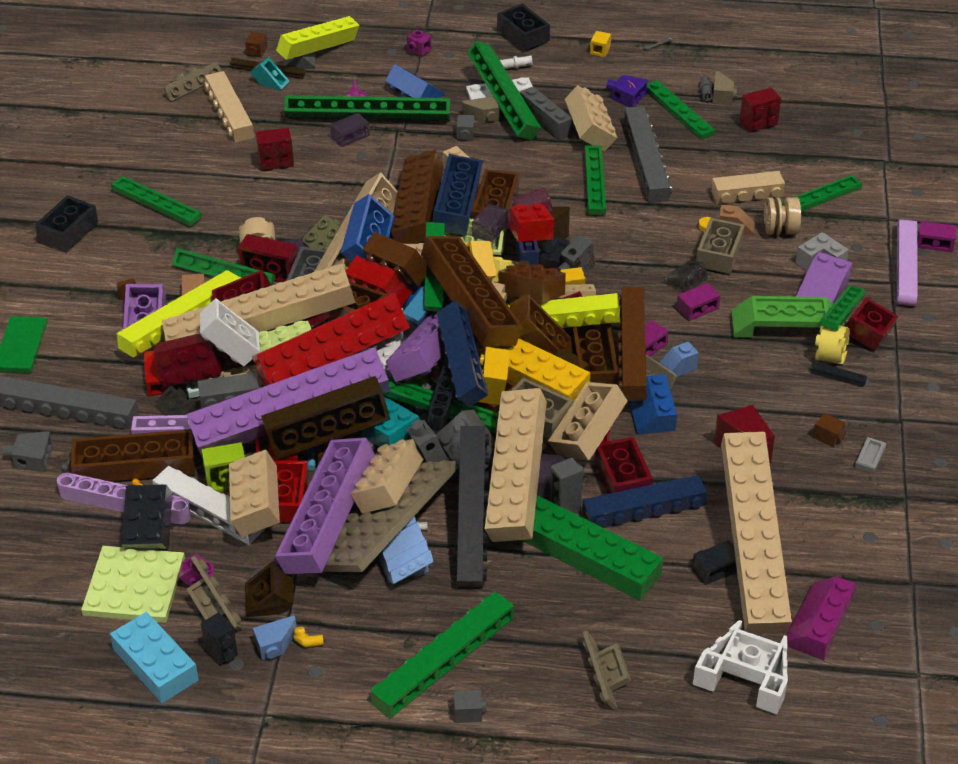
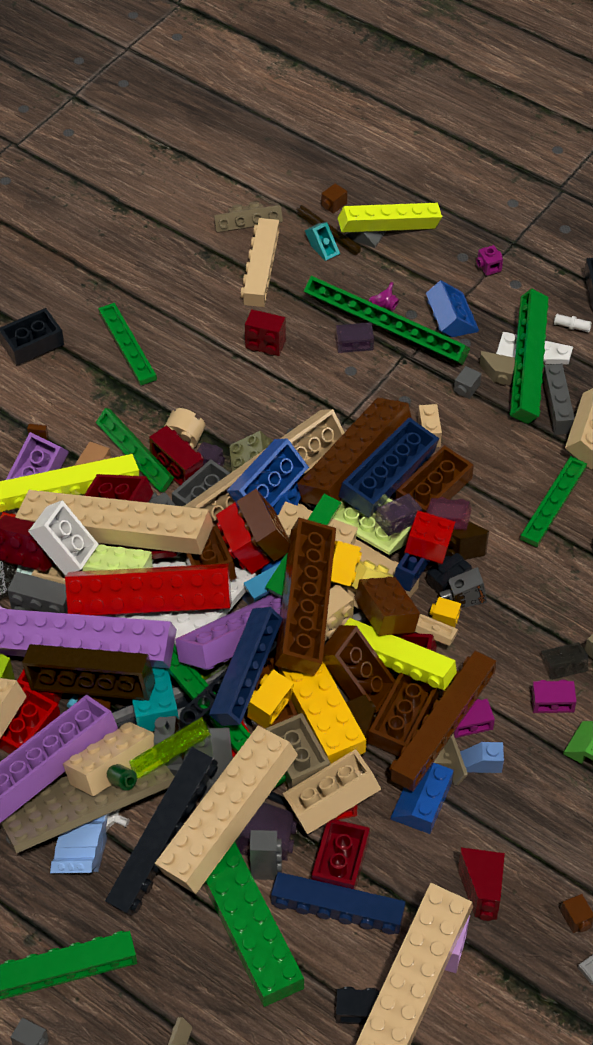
camera: 30 degrees right, 10 degrees up
(412, 477) = (121, 777): none -> dark green brick
(438, 440) = (170, 747): none -> clear neon green plate

